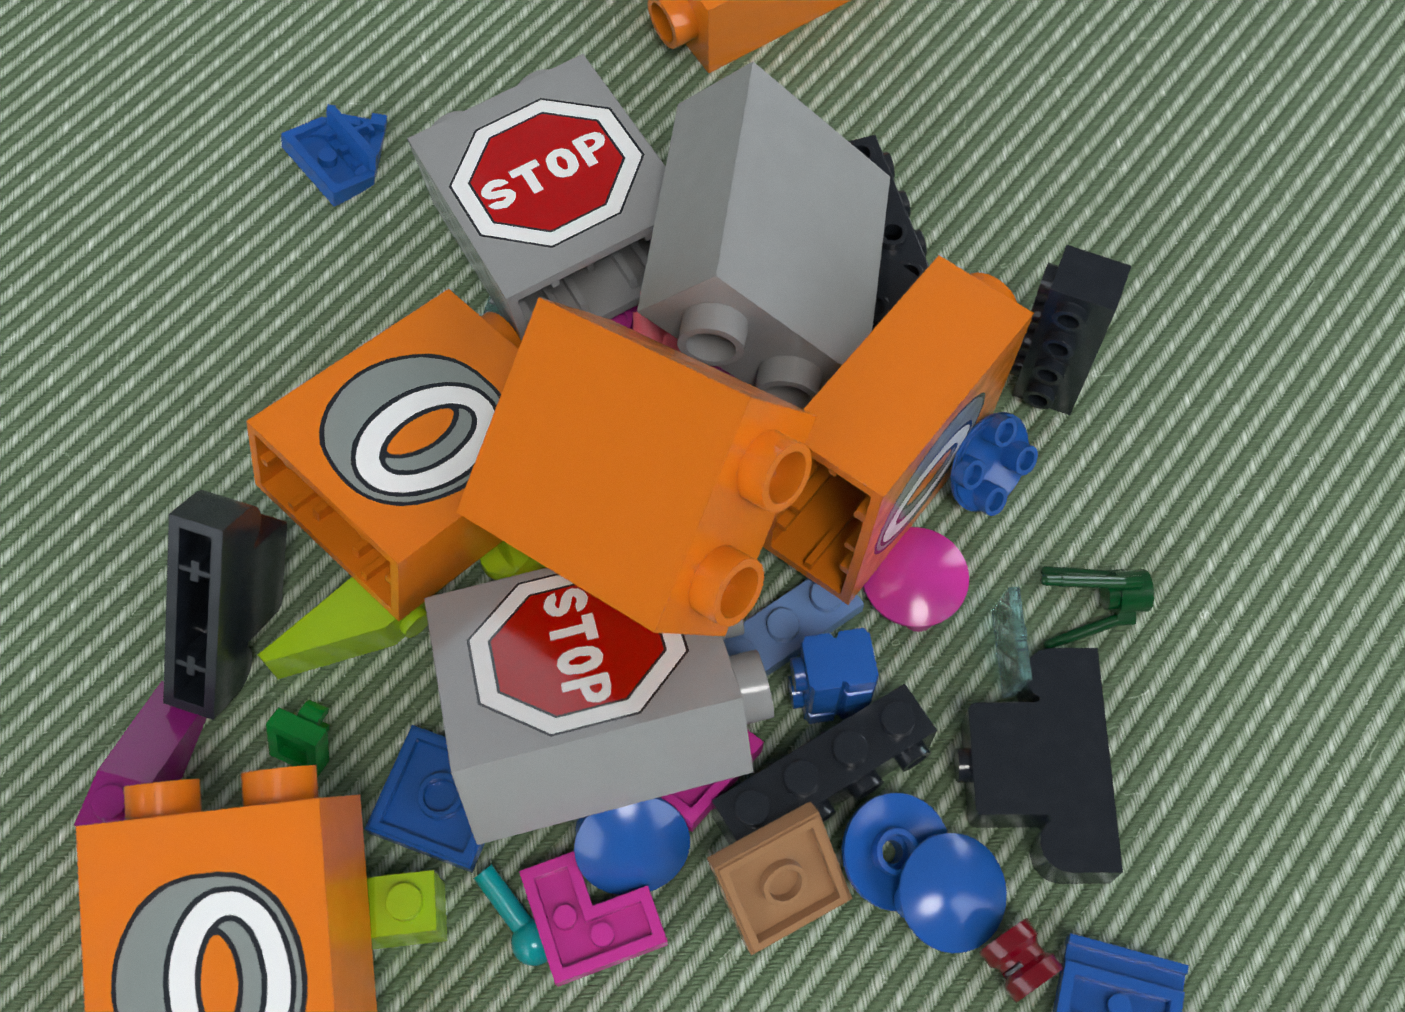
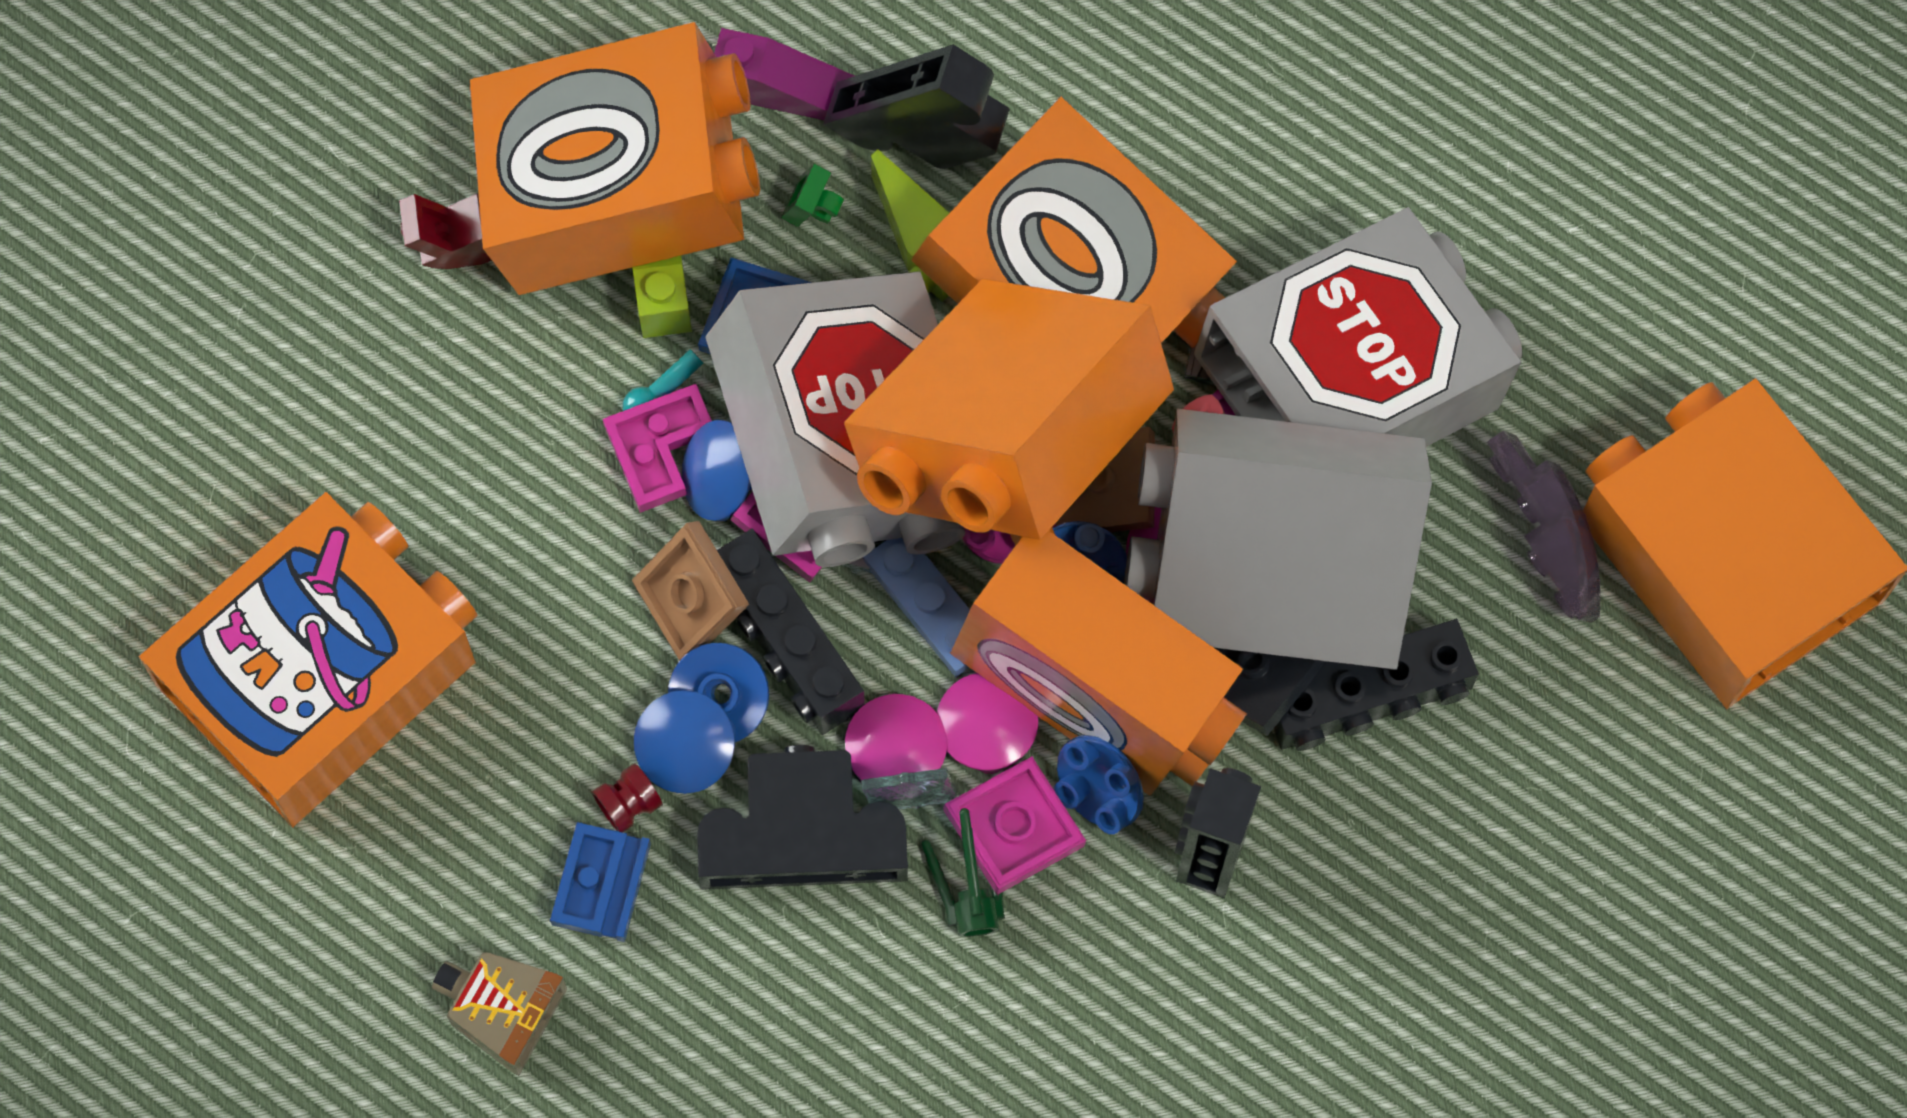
camera: 85 degrees right, 5 degrees up
(338, 152) = (1438, 158): blue slope -> none
(707, 66) = (1563, 539): none -> clear purple slope
(833, 675) = (871, 632): blue brick -> none
(943, 665) = (895, 737): none -> dark pink dish
(1026, 542) = (1016, 825): none -> dark pink plate

